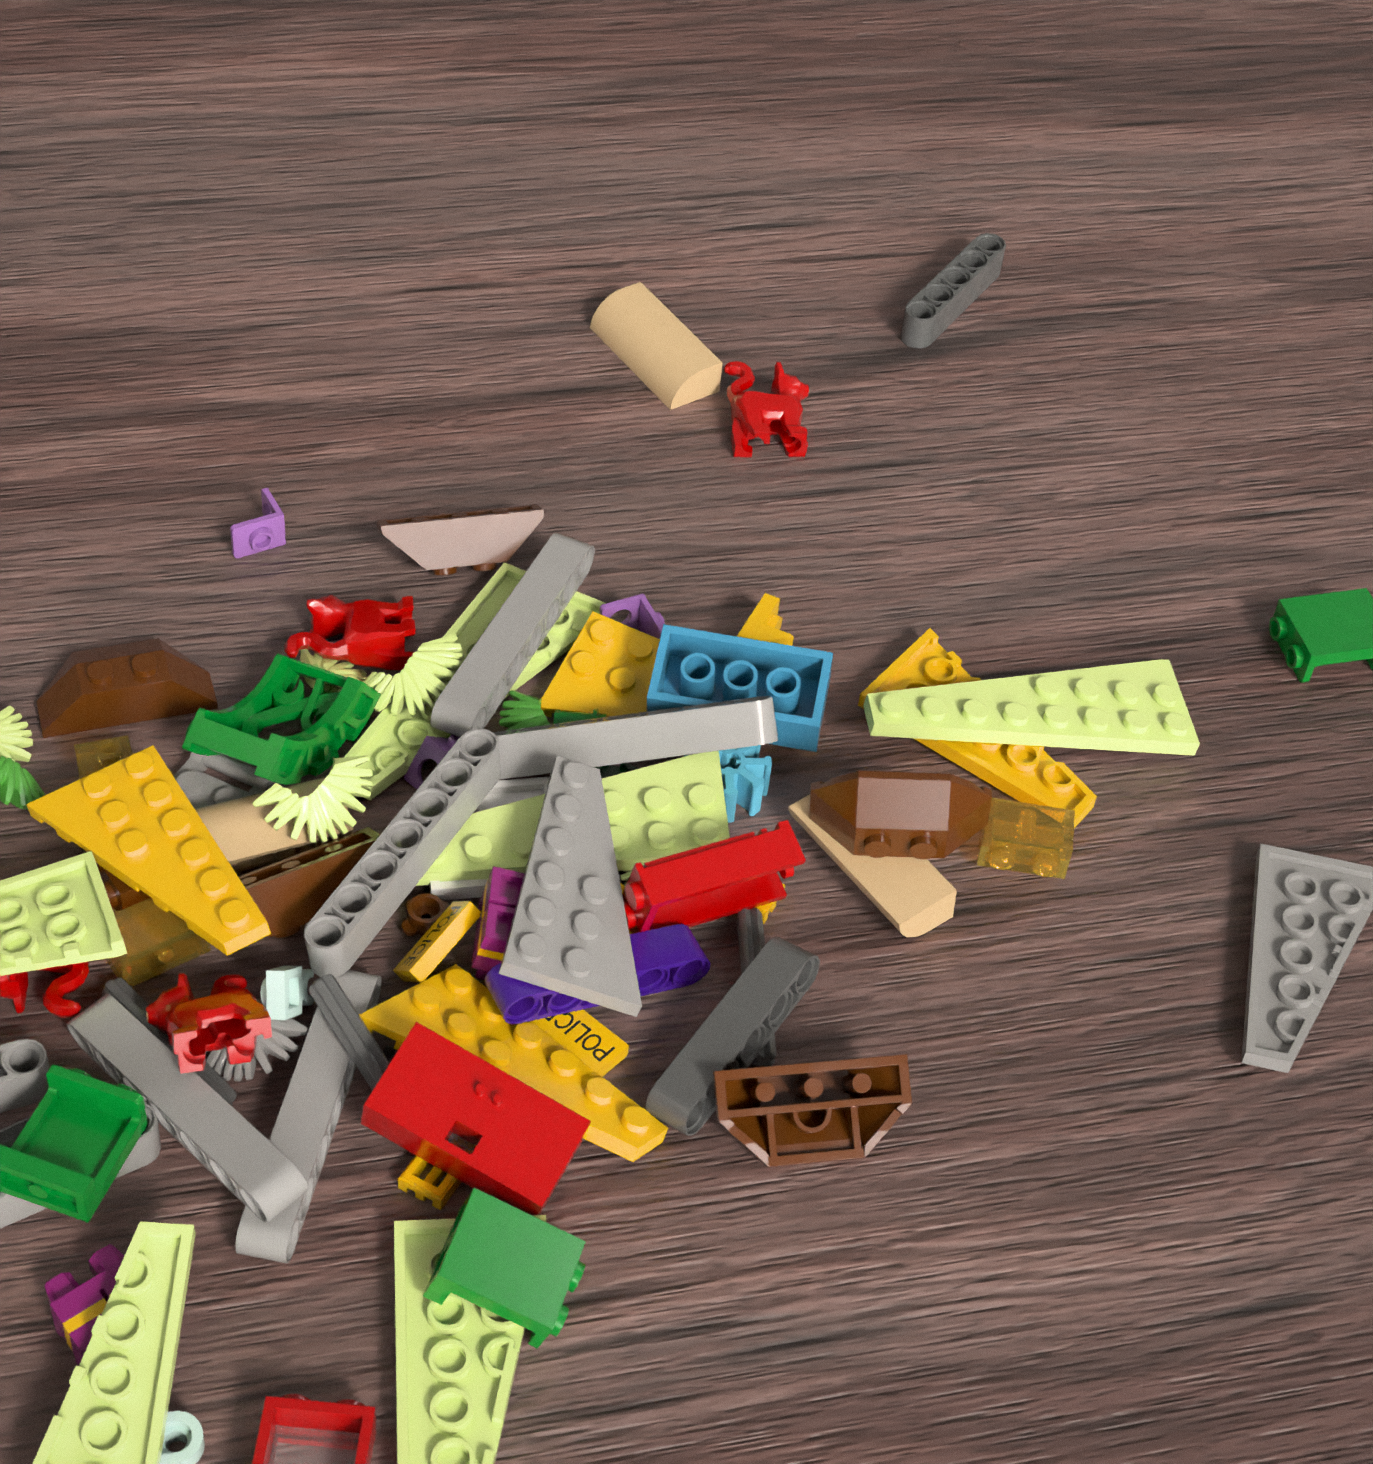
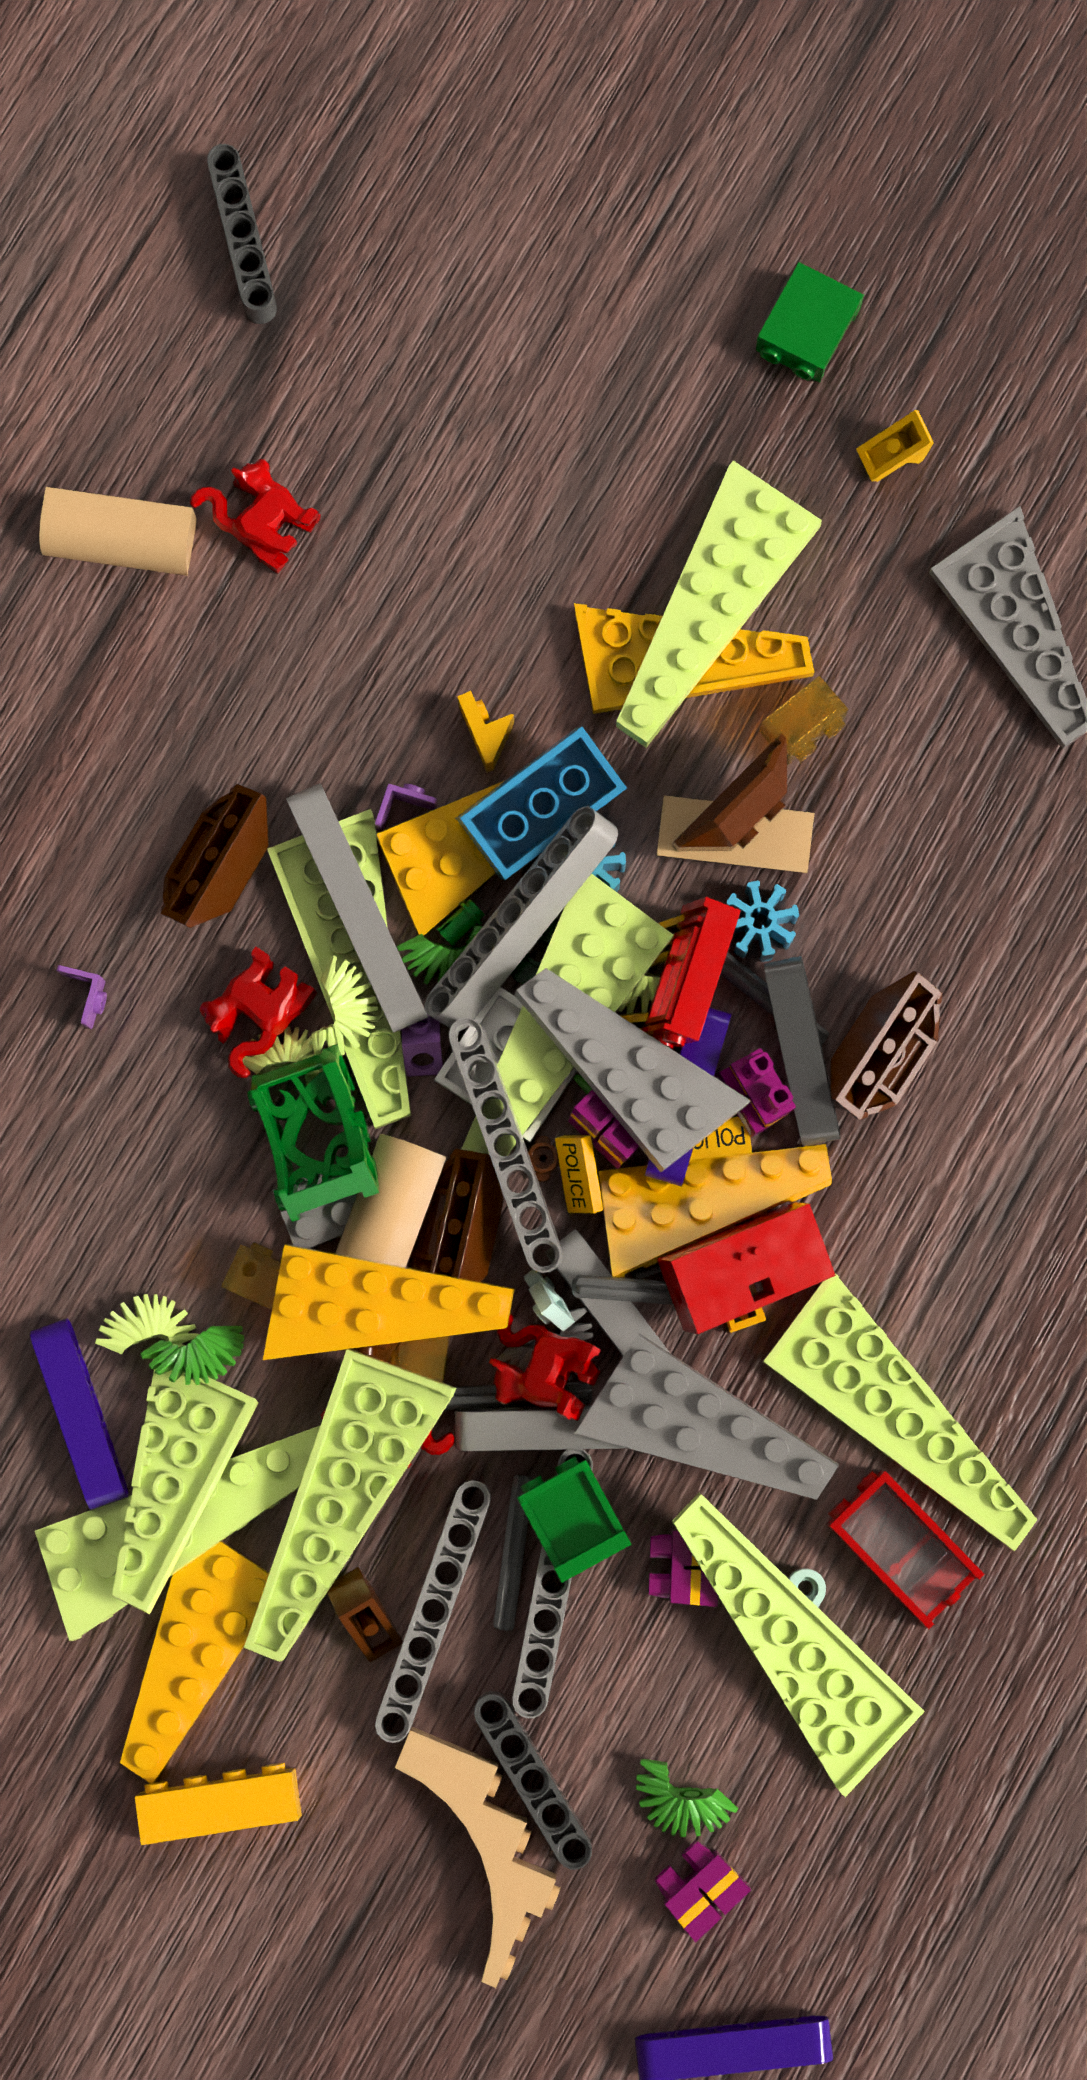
camera: 40 degrees left, 35 degrees up
(122, 688) = (171, 1204): reddish brown wedge -> none
(267, 1154) = (682, 1416): none -> light grey wing
(325, 805) = (420, 1168): yellowish green hair -> none
(508, 1265) = (853, 1326): panel -> none
(658, 1030) = (757, 1079): none -> magenta hips
(821, 925) = (774, 918): none -> medium azure gear
(1323, 748) = (899, 444): none -> yellow slope

